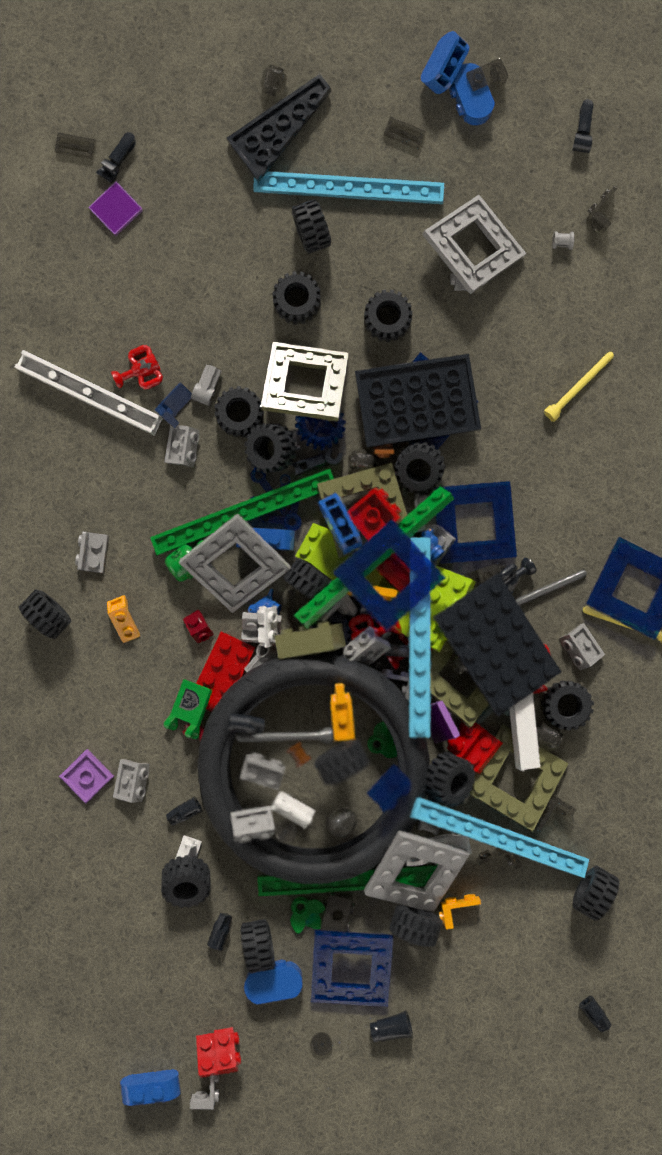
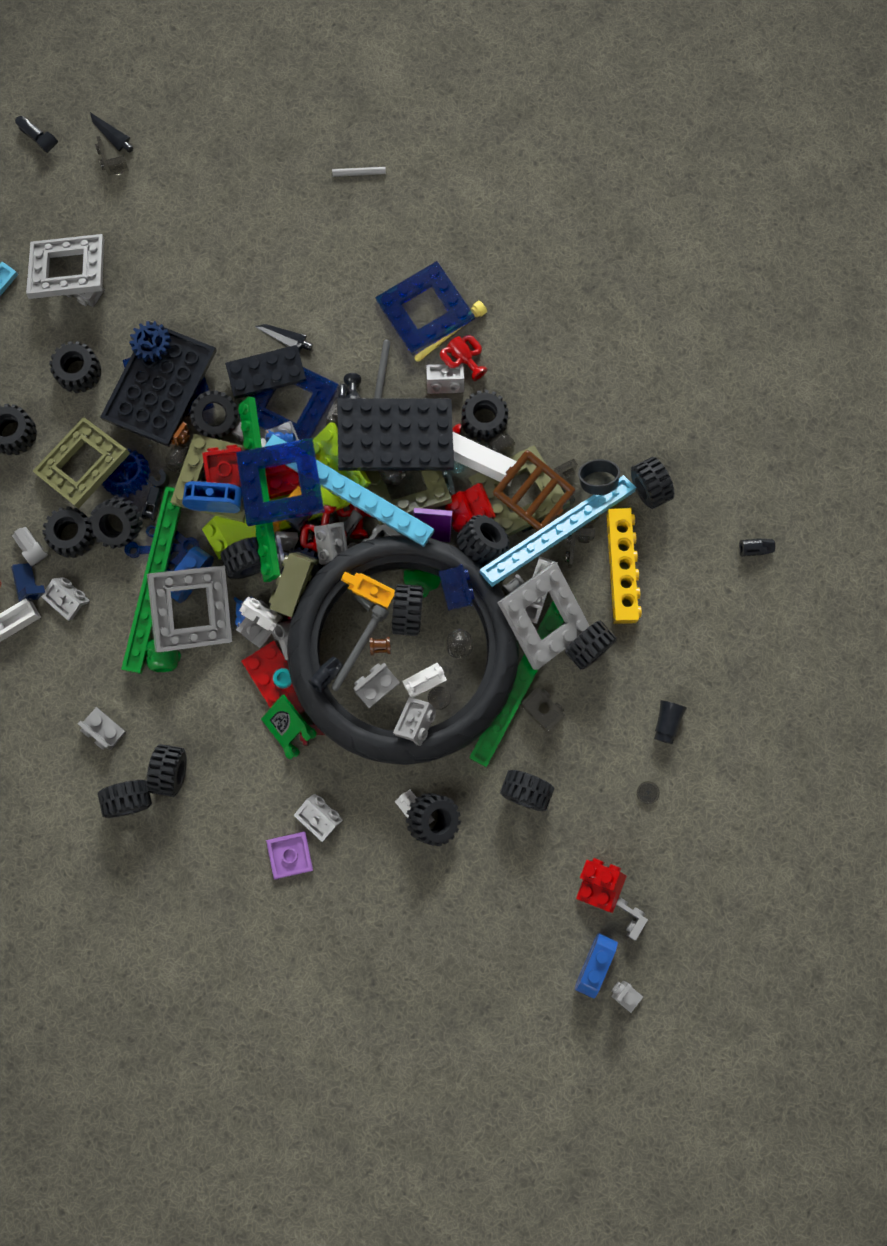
camera: 60 degrees left, 10 degrees down
(89, 633) = (166, 770): none -> black tyre
(122, 619) = (176, 737): light orange bracket -> none
(142, 1123) = (626, 995): none -> light grey bracket
(184, 811) = (374, 787): black hinge -> none
(198, 626) = (225, 677): dark red bracket -> none
(220, 932) = (497, 819): black hinge -> none
(226, 678) = (282, 678): none -> teal tile
(274, 984) = (569, 799): blue brick -> none
(308, 915) = (530, 737): green plate -> none
(371, 994) = (561, 731): clear blue plate -> none
(443, 366) = (142, 346): none -> dark blue gear
(451, 903) = (596, 615): light orange bracket -> none
(487, 486) = (265, 371): none -> black plate
(494, 908) = (623, 518): none -> yellow brick
(534, 488) = (287, 337): none -> black bar
(547, 790) = (555, 479): none -> reddish brown bar
(553, 412) = (241, 288): light yellow piece -> none
(563, 240) = (111, 200): light grey bush -> none
(586, 835) = (599, 465): none -> black tyre
(614, 648) = (462, 354): none -> red piece
(628, 196) = (115, 136): none -> black bar

